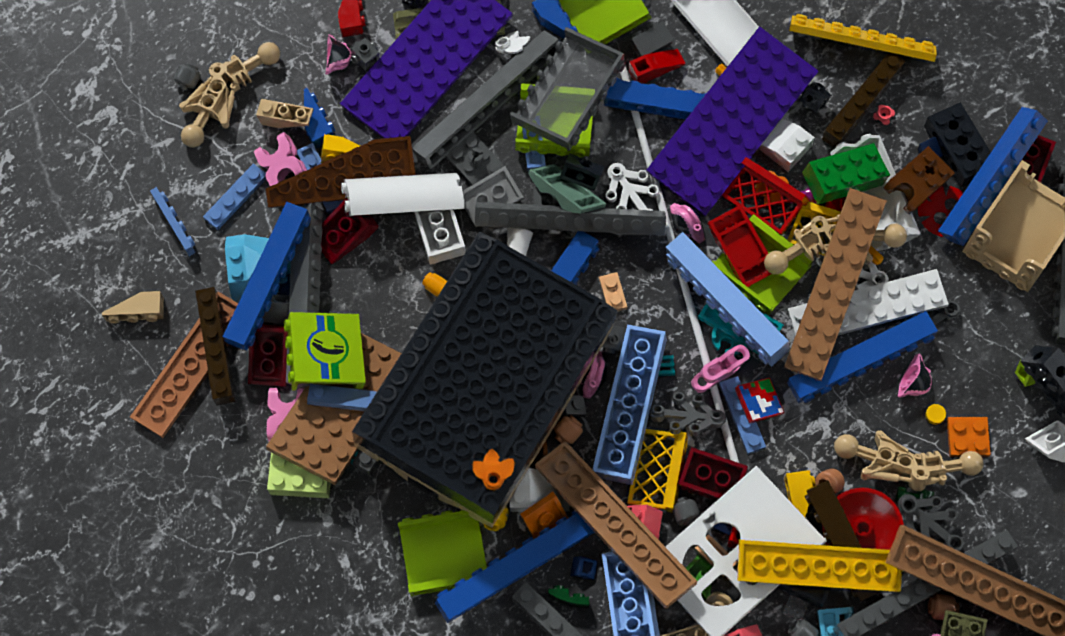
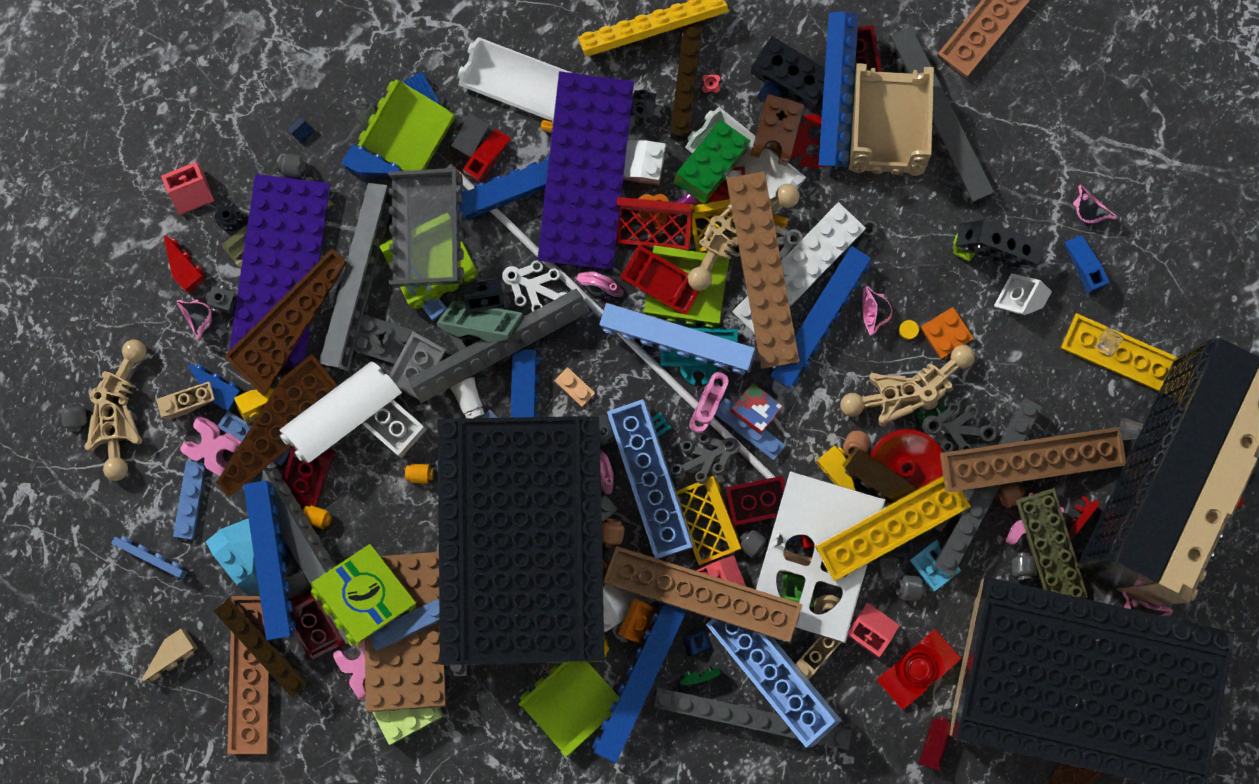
camera: 25 degrees left, 10 degrees up
(330, 270) = (318, 517): none -> light orange brick
(383, 107) = (272, 340): none -> reddish brown wing
(493, 467) = (578, 621): orange plate -> none
(511, 43) = (346, 211): white plate -> none

